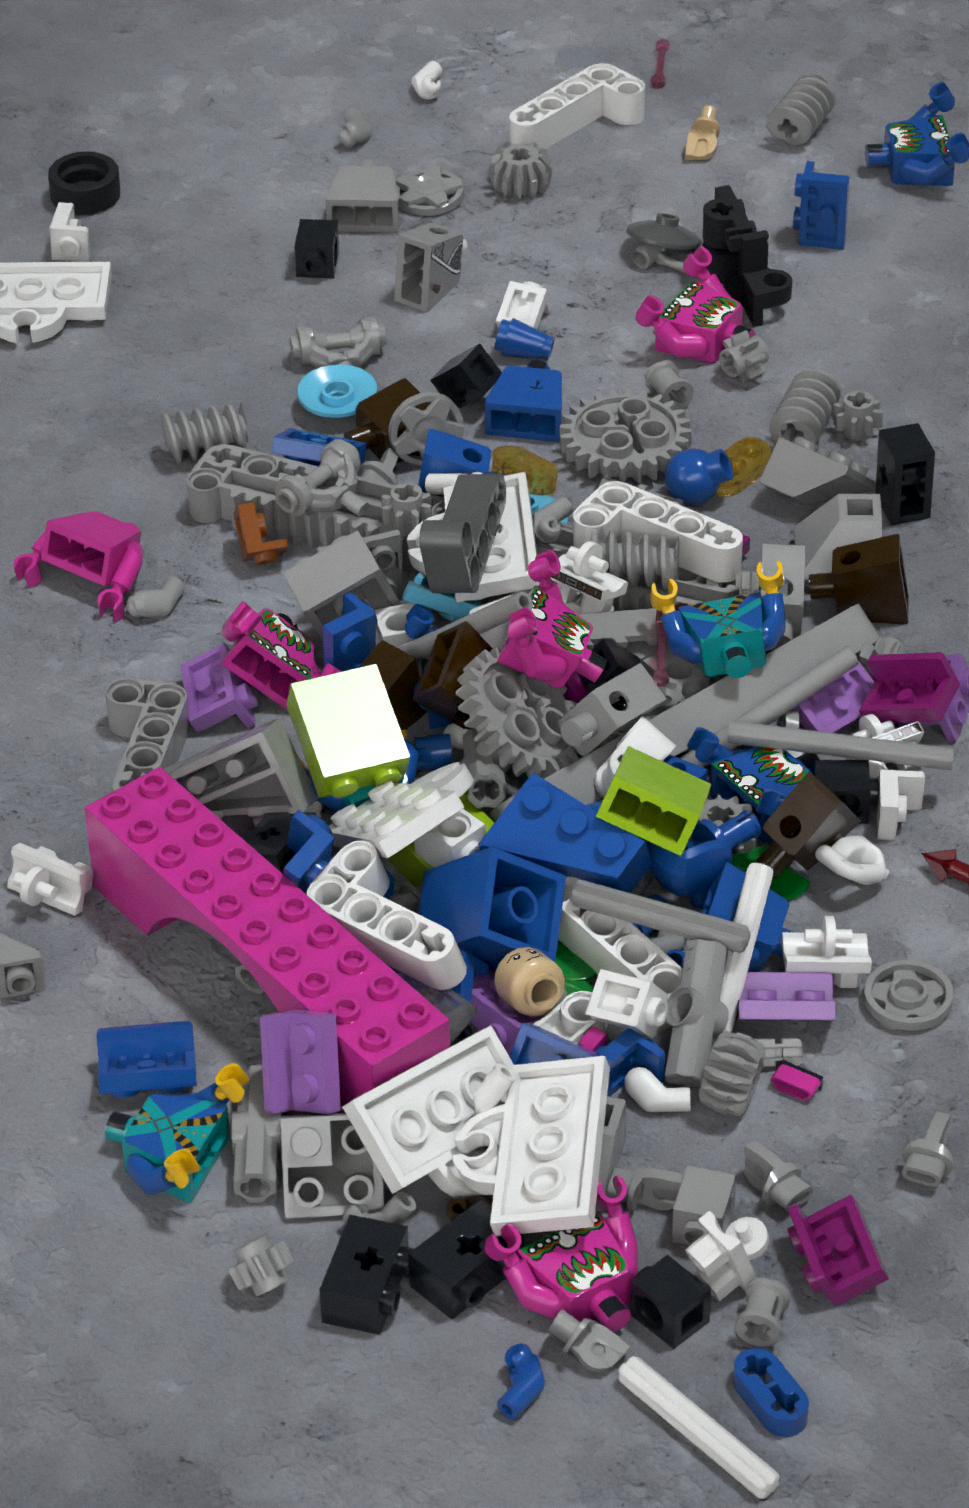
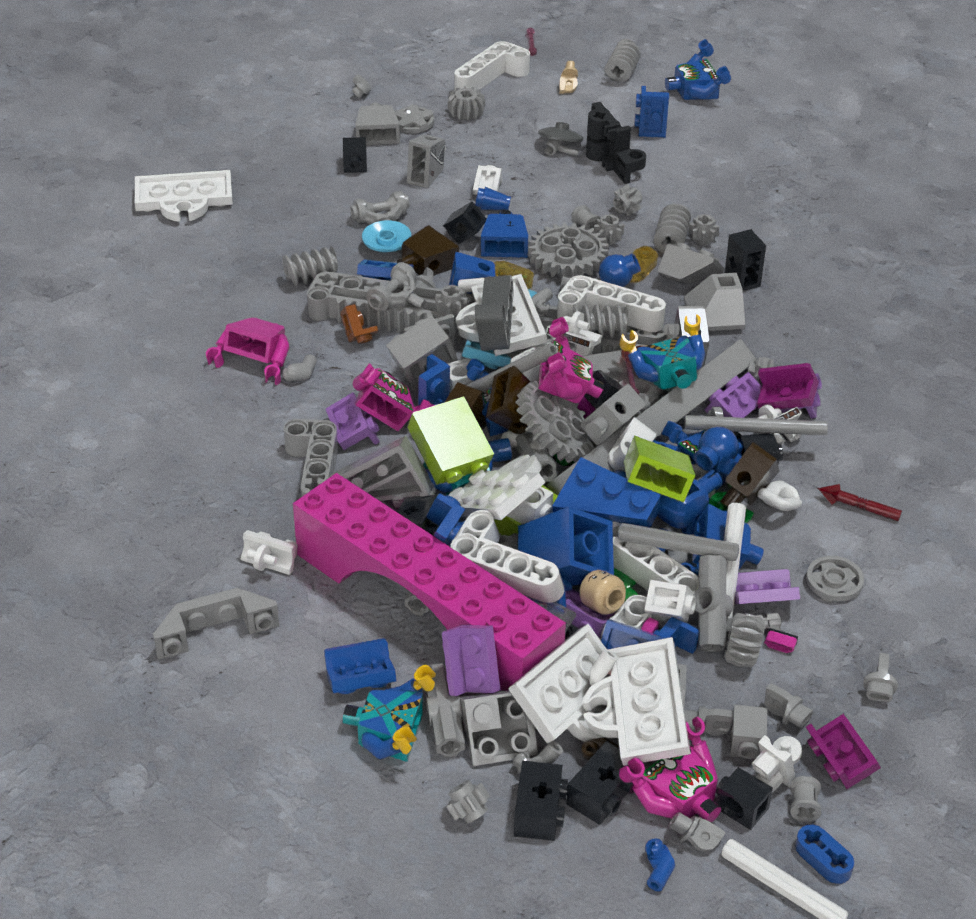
camera: 10 degrees left, 0 degrees up
(67, 236) = (201, 158): white bracket -> none
(85, 167) = (209, 117): black tyre -> none
(419, 421) = (446, 252): light grey wheel -> none
(424, 81) = (396, 58): white arm -> none
(652, 1094) = (693, 658): white arm -> none
(697, 318) = (594, 180): dark pink torso -> none
(702, 404) = (609, 228): none -> light grey gear
(760, 769) = (713, 444): none -> blue piece
(790, 696) = (715, 397): light grey piece -> none
(828, 951) = (781, 555): white hips -> none
(867, 575) = (738, 321): dark brown torso -> none
(897, 794) = (794, 454): white bracket -> none

